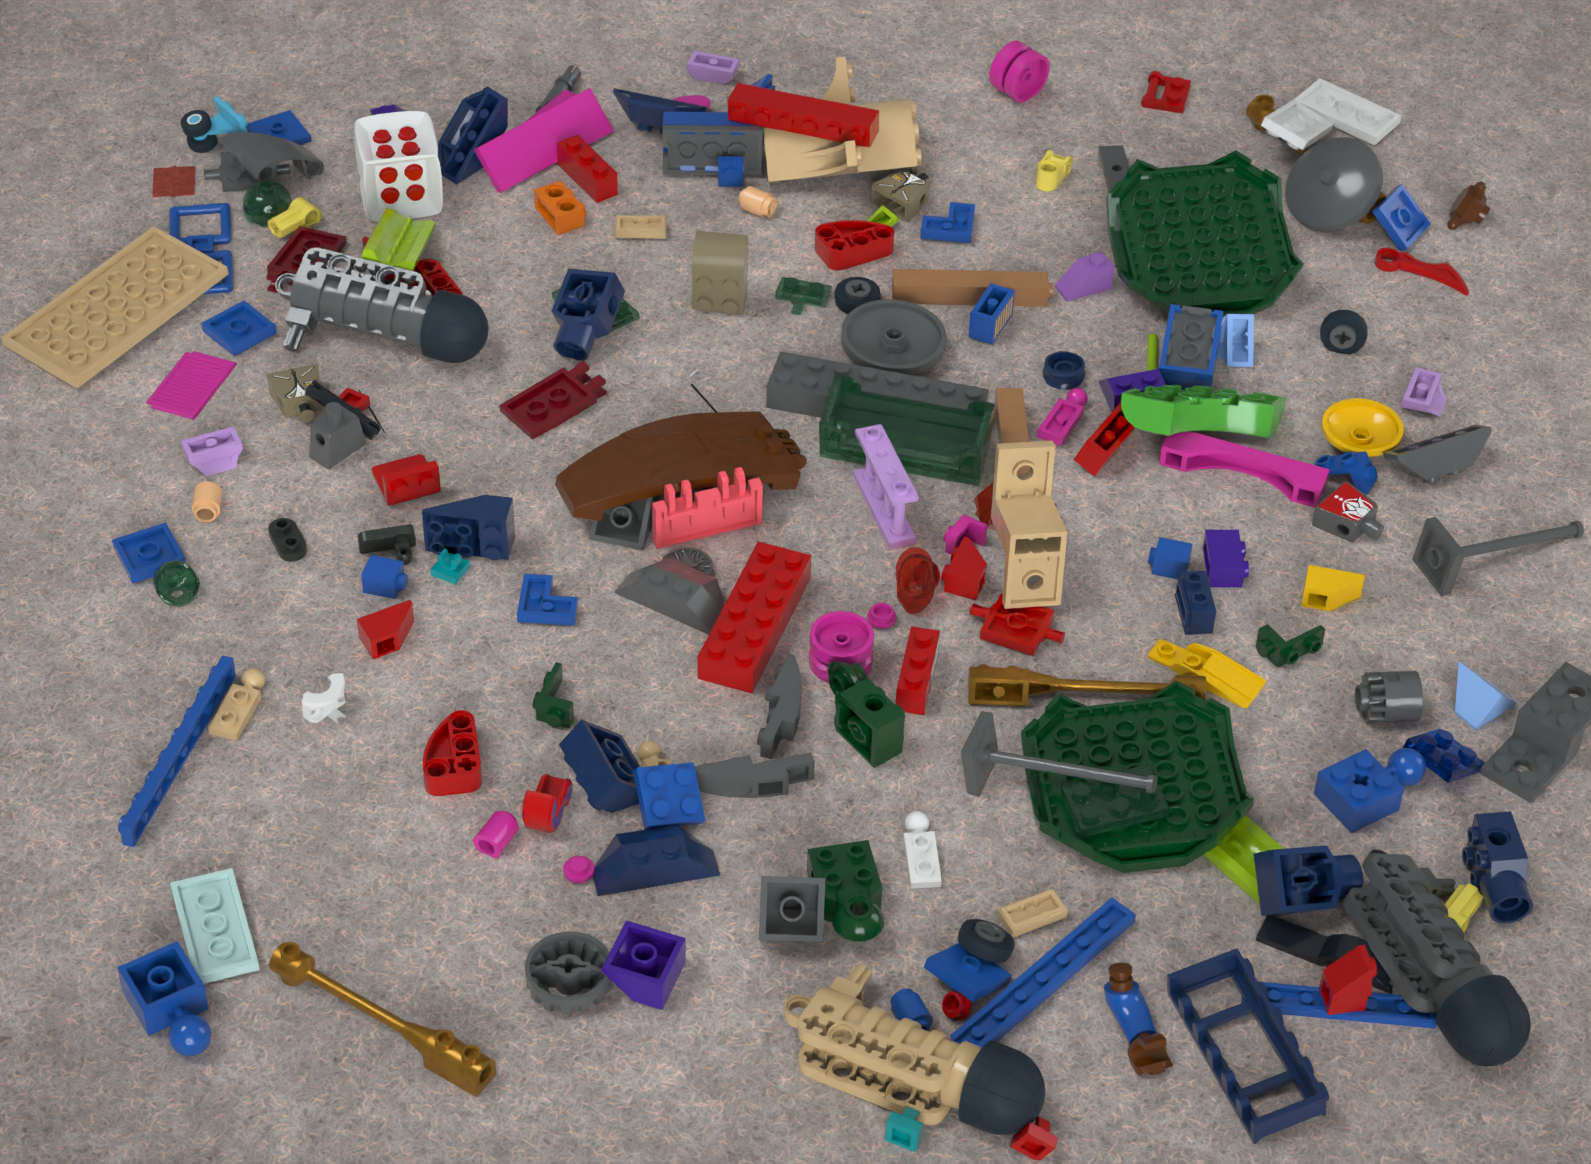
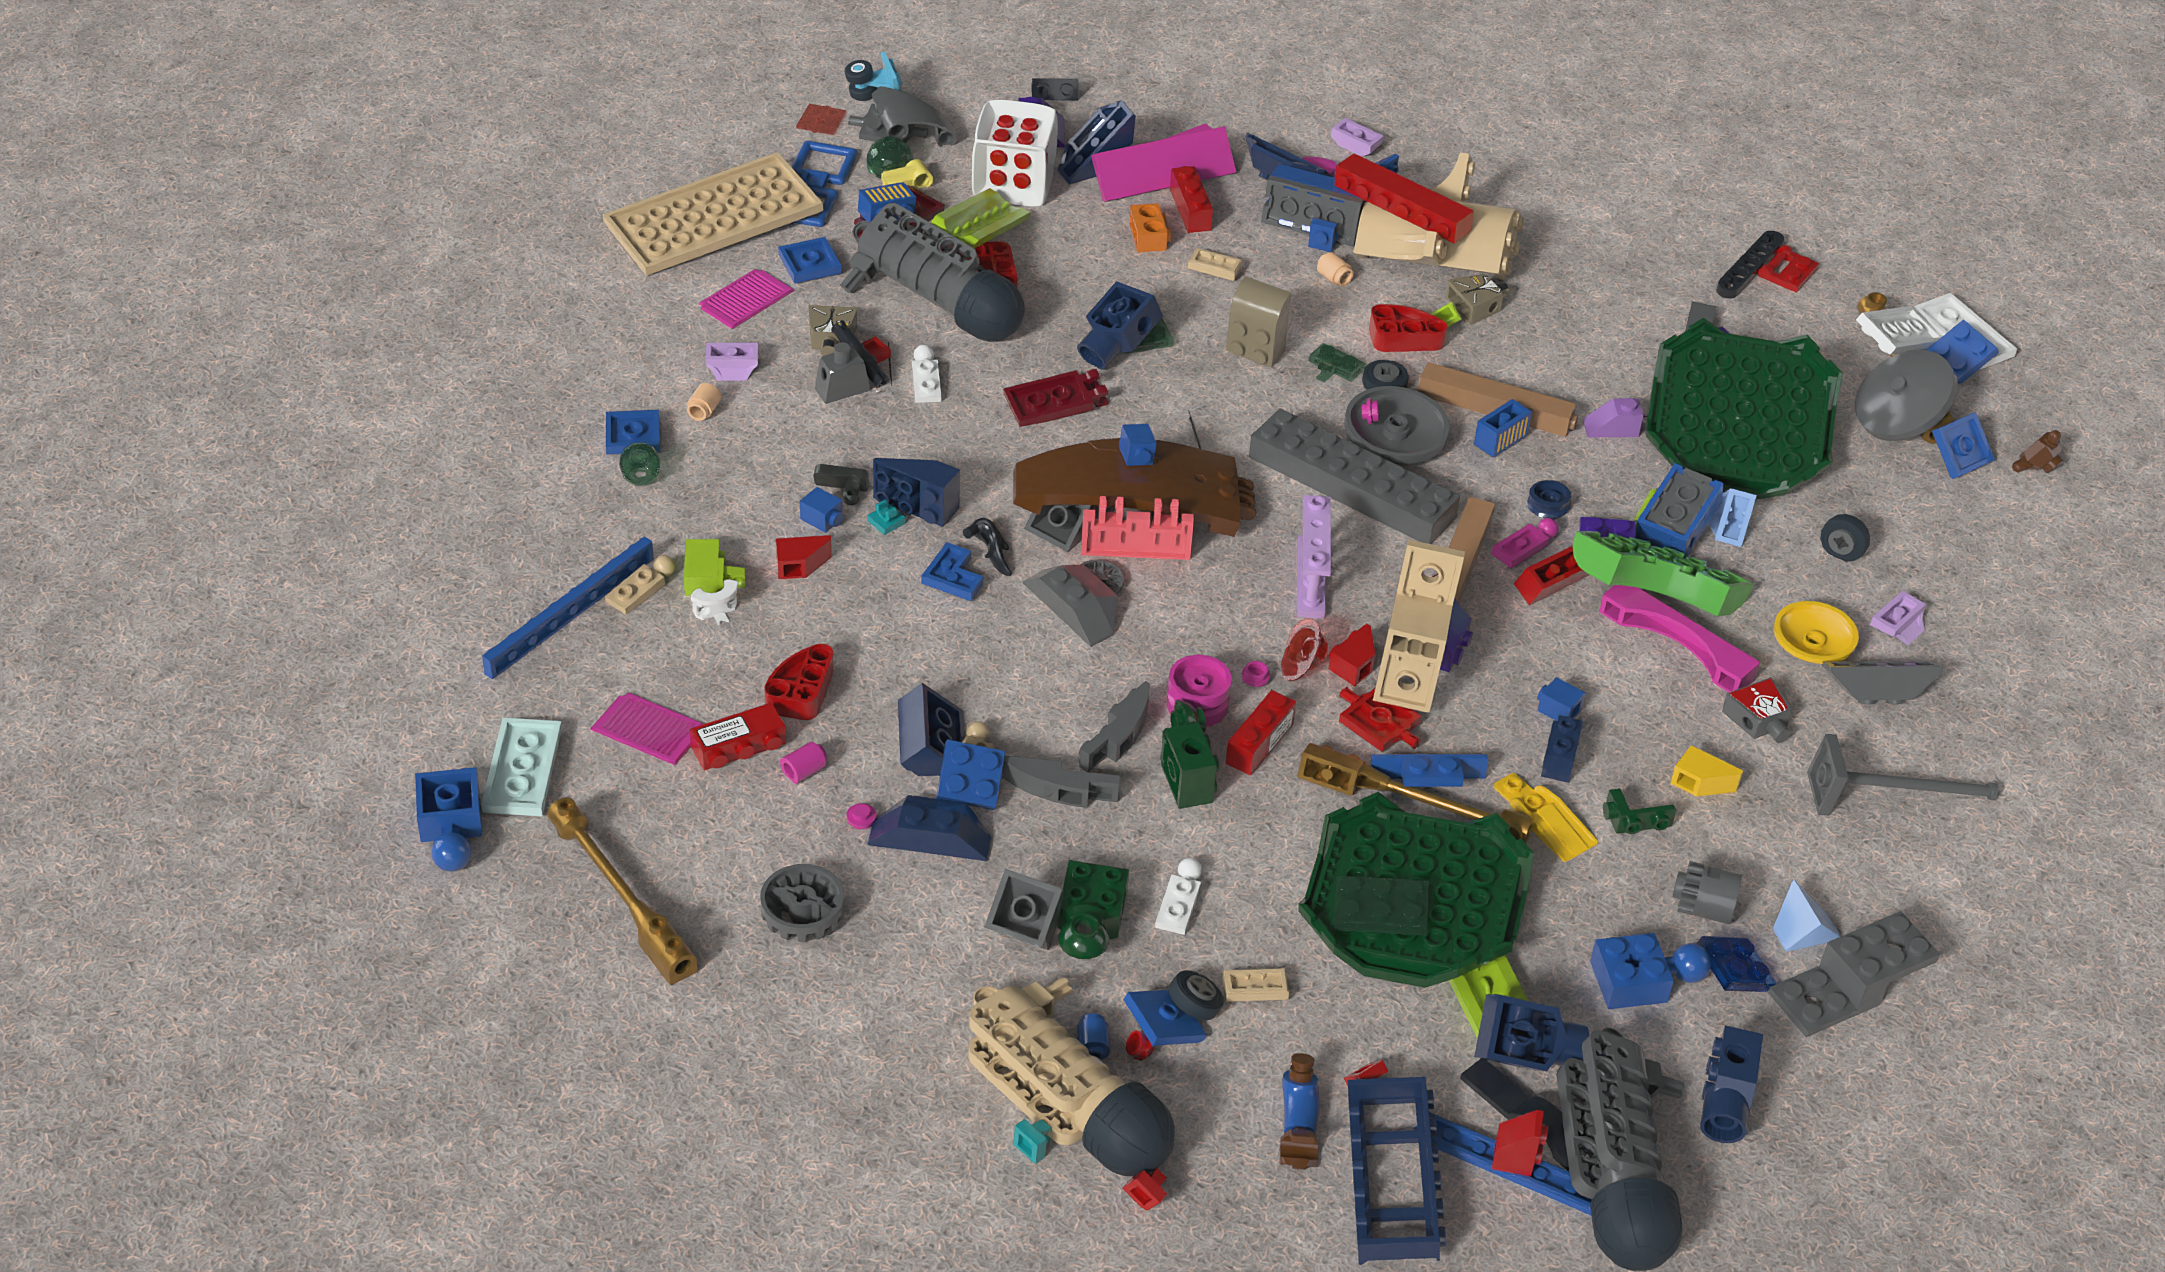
camera: 20 degrees right, 0 degrees up
(281, 125) = (938, 95): blue plate -> none
(287, 250) = (875, 198): none -> blue brick
(287, 539) = (757, 454): pearl dark grey plate -> none
(299, 669) = (706, 567): none -> lime hinge
(320, 847) = (647, 727): none -> dark pink window
(396, 92) = (1055, 89): none -> black hinge
(407, 479) = (886, 430): red bracket -> none
(415, 413) = (925, 375): none -> white plate
(418, 828) = (737, 736): none -> red brick
(545, 806) = (858, 753): red animal -> none
(550, 709) = (907, 661): dark green bracket -> none
(559, 553) = (987, 532): none -> black piece
(563, 82) = (1211, 118): dark grey pin -> none
(646, 963) = (872, 916): dark purple slope -> none
(674, 424) = (1137, 444): none -> blue brick
(754, 617) = (1134, 640): red brick -> none
(866, 331) = (1370, 411): none -> dark pink plate
(925, 436) = (1363, 514): clear green windscreen -> none
(954, 228) = (1509, 341): blue plate -> none
(962, 528) = (1374, 616): dark pink bracket -> none
(982, 753) = (1280, 823): dark grey tile -> none
(1019, 71) = (1646, 211): dark pink wheel -> none
(1046, 975) = (1238, 1045): blue plate -> none
(1052, 171) = (1635, 312): light yellow piece -> none
(1089, 658) = (1431, 769): none -> blue bracket
(1130, 90) = (1750, 257): none -> black beam
(1175, 961) = (1369, 1071): none -> red plate
(1225, 558) = (1613, 716): dark purple piece -> none
(1356, 464) = (1791, 667): blue bracket -> none
(1358, 124) = (1964, 350): none -> blue plate
(1404, 261) = (1983, 510): red piece -> none
(1464, 904) = (1676, 1113): light yellow piece -> none

